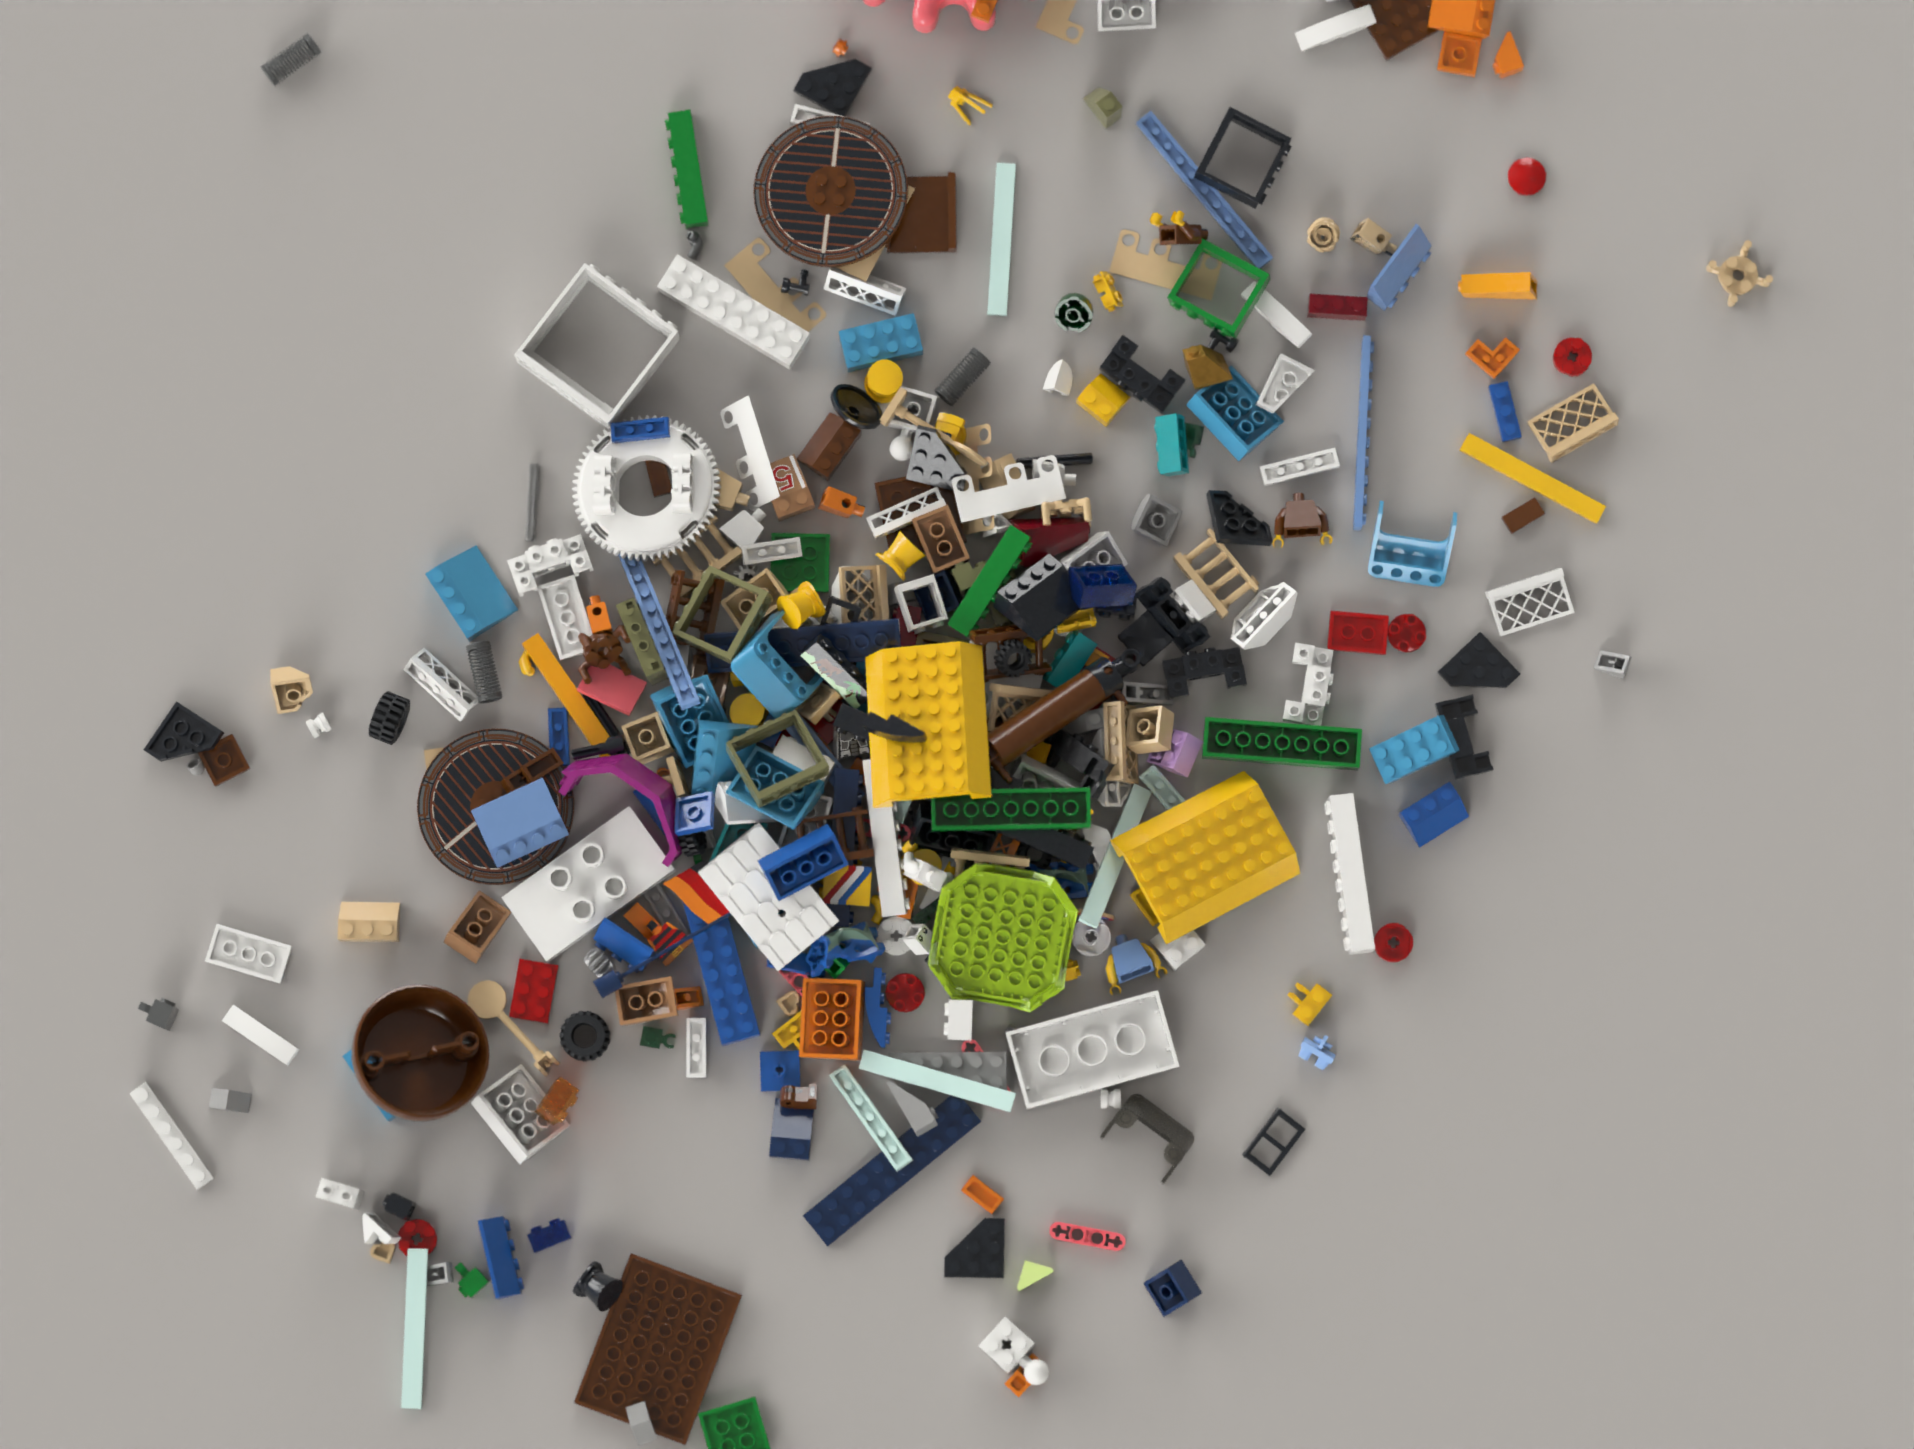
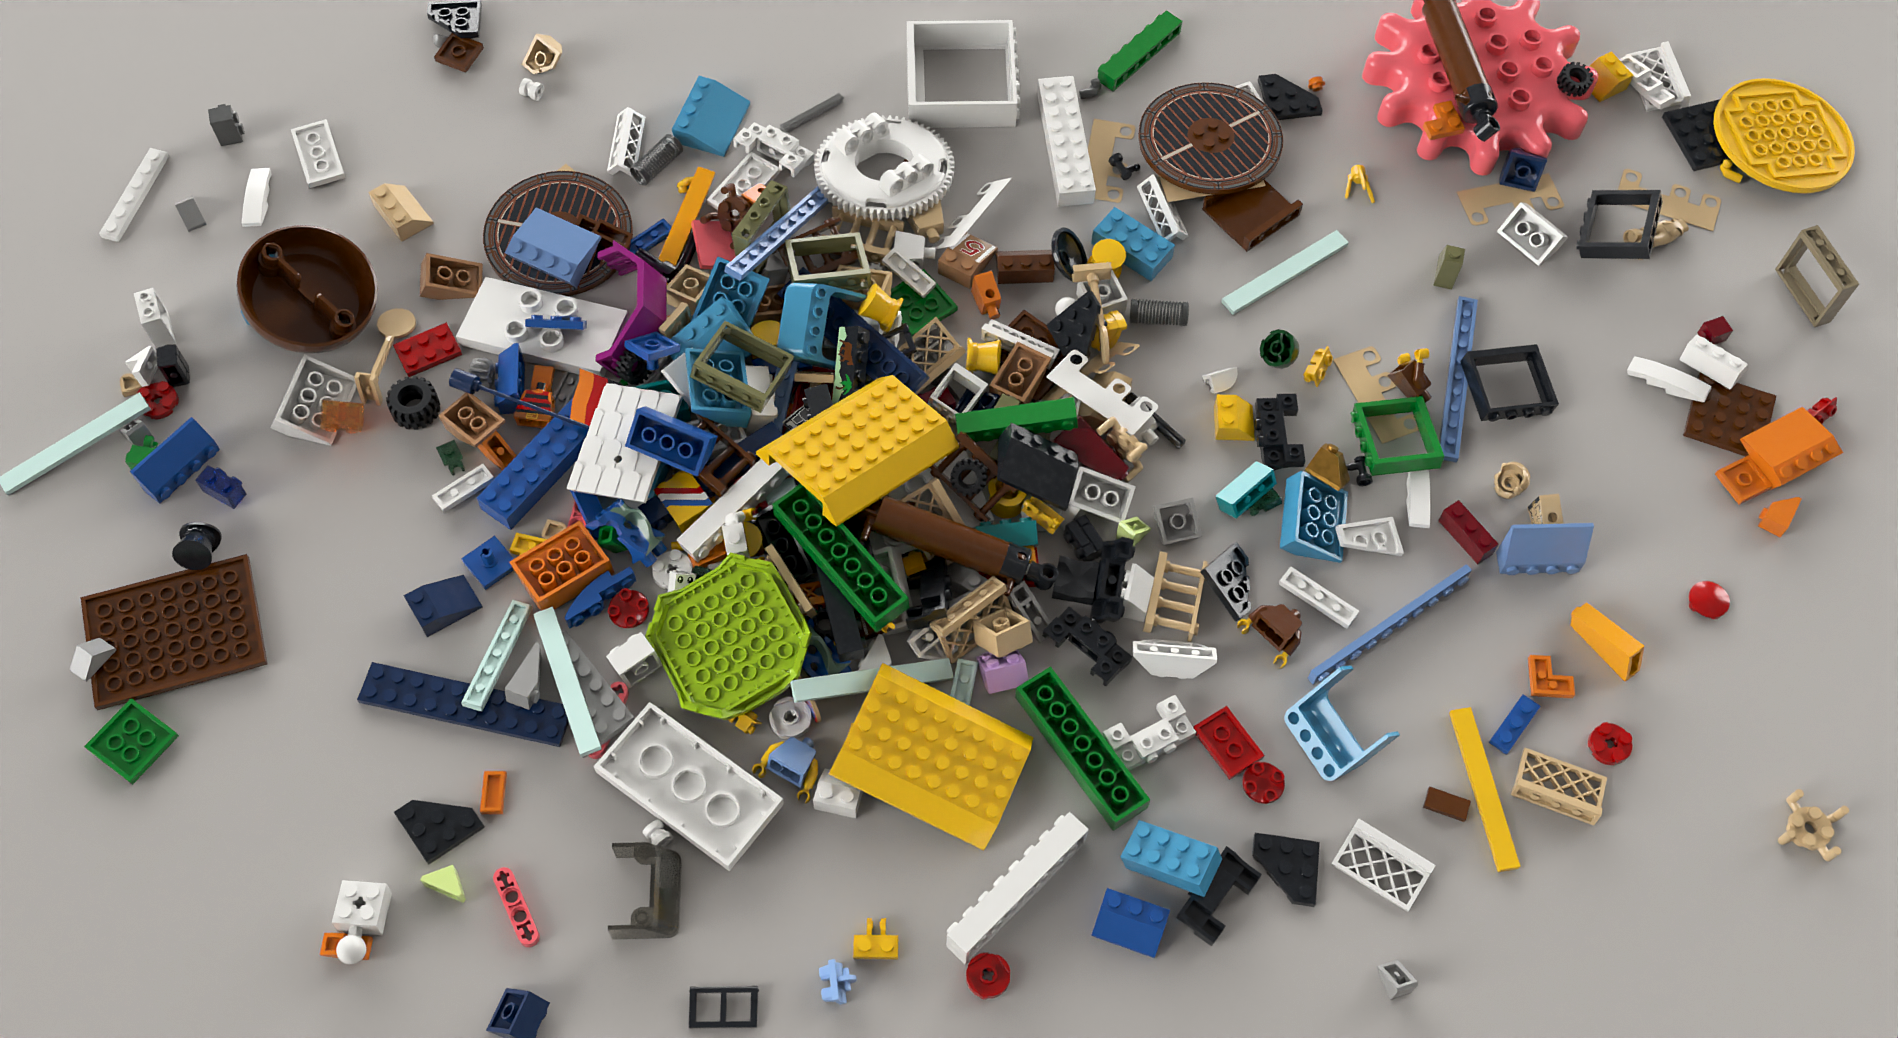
camera: 50 degrees right, 20 degrees down
(389, 718) = (569, 119): black tyre -> none
(603, 873) = (555, 322): none -> blue plate
(640, 430) = (923, 132): blue tile -> none
(799, 1097) = (476, 589): reddish brown leg -> none
(893, 729) = (830, 411): black slope -> none
(1101, 586) = (1086, 507): clear blue slope -> none
(1137, 559) = (1132, 529): none -> yellowish green slope

